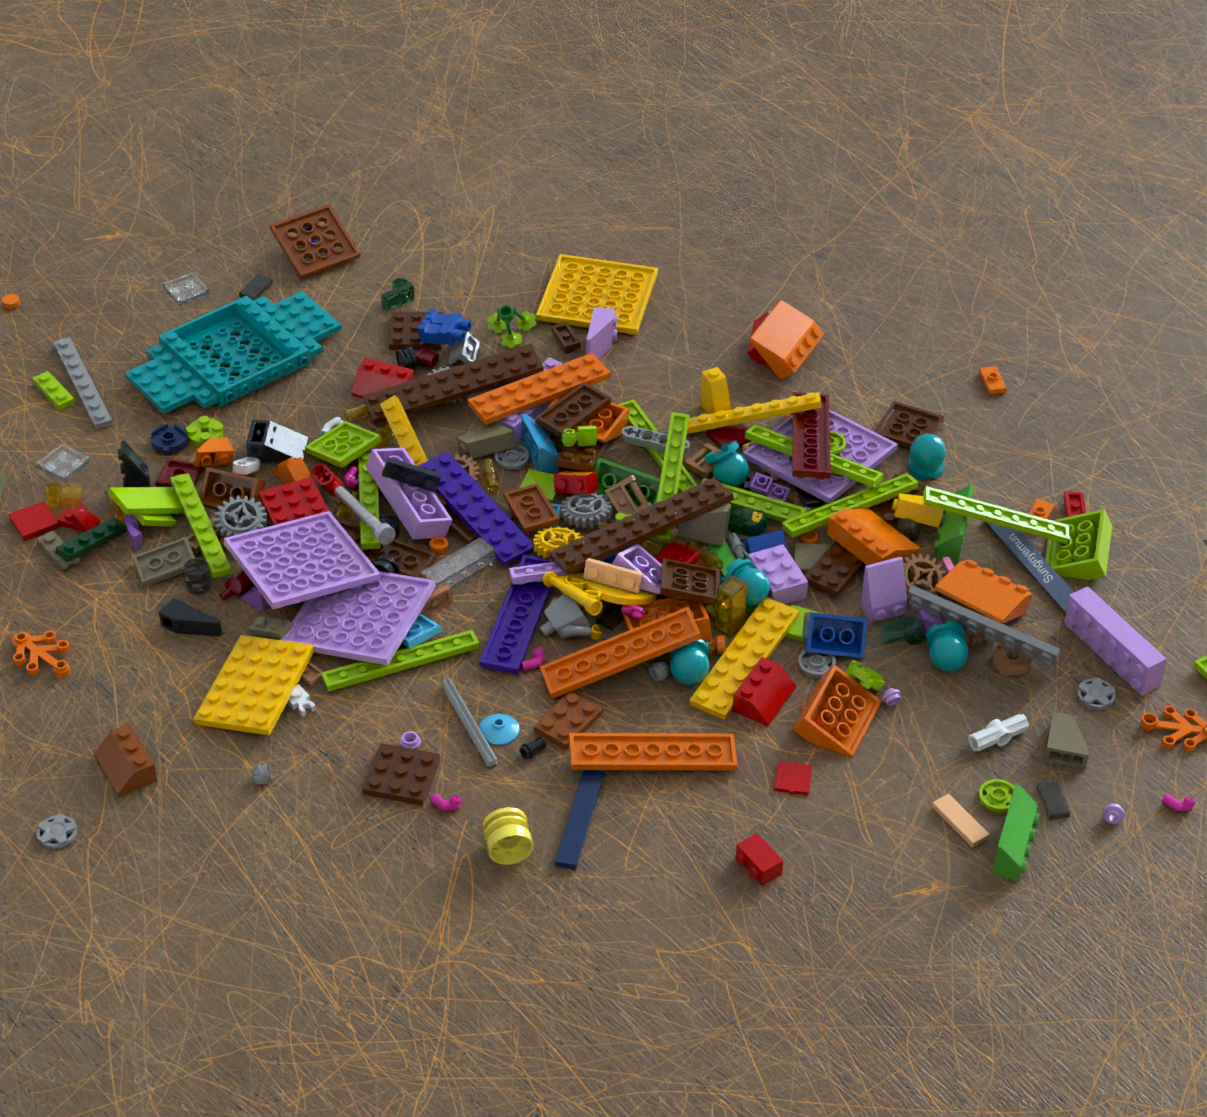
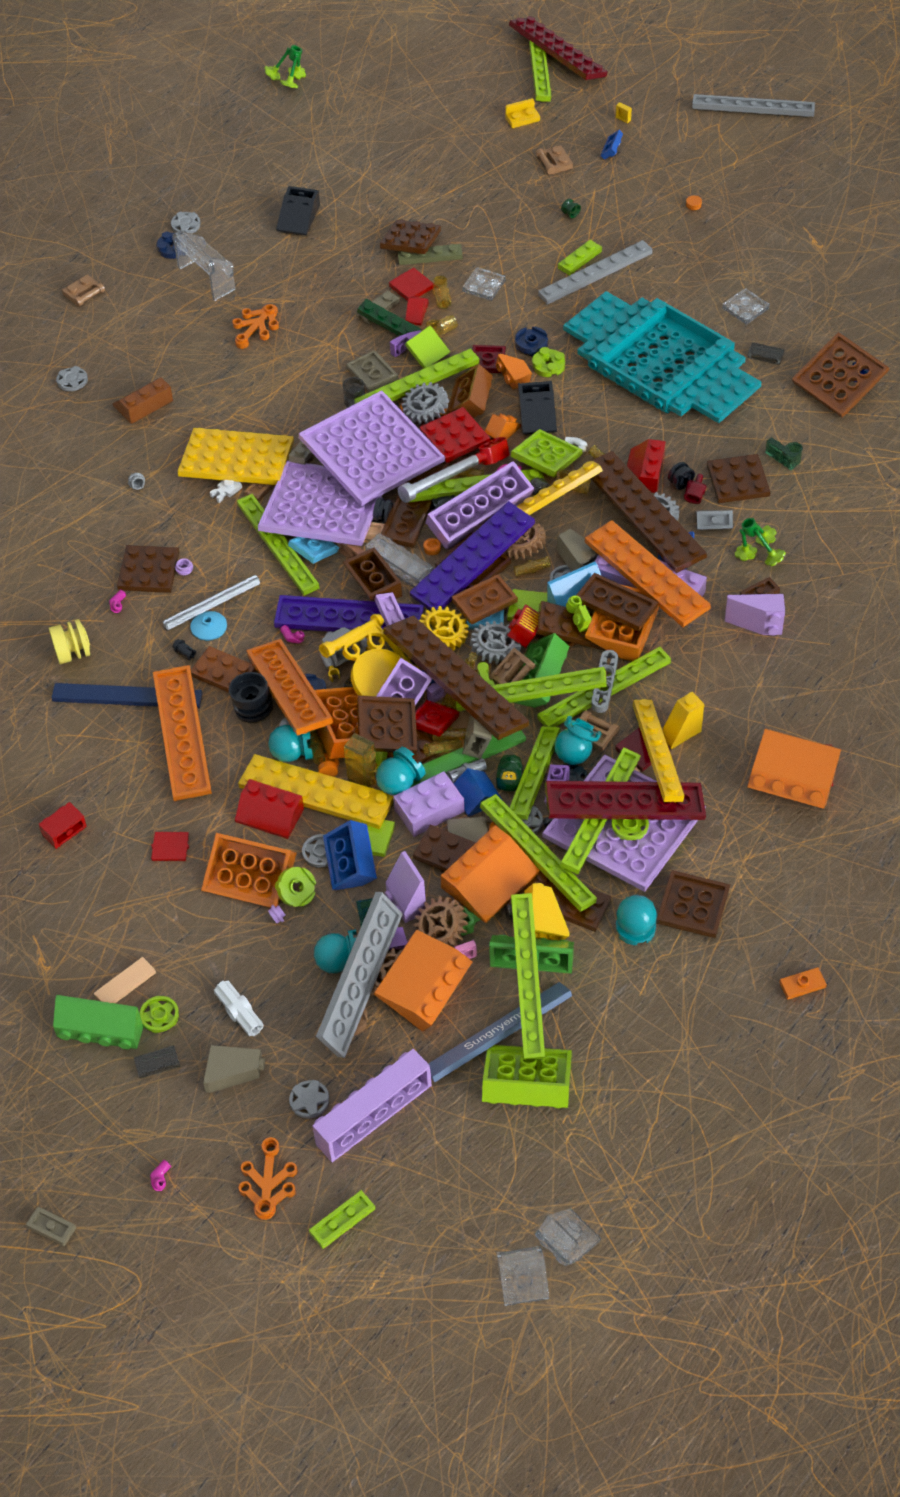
camera: 85 degrees right, 10 degrees up
(133, 467) = (468, 320): black slope -> none
(146, 500) = (432, 336): lime tile -> none
(185, 619) = (306, 395): black slope -> none
(246, 465) = (502, 395): white beam -> none
(411, 474) = (482, 494): black plate -> none
(443, 328) = (728, 495): blue hips -> none
(478, 579) = (373, 574): none -> reddish brown slope
(588, 283) = (840, 609): yellow plate -> none
(613, 575) = (384, 664): light nougat plate -> none
(622, 689) = (250, 697): none -> black wheel
(634, 610) = (344, 691): dark pink arm -> none
(1042, 509) = (577, 1038): orange plate -> none
(1074, 503) = (594, 1071): red plate -> none
(1113, 809) = (138, 1113): lavender plate -> none

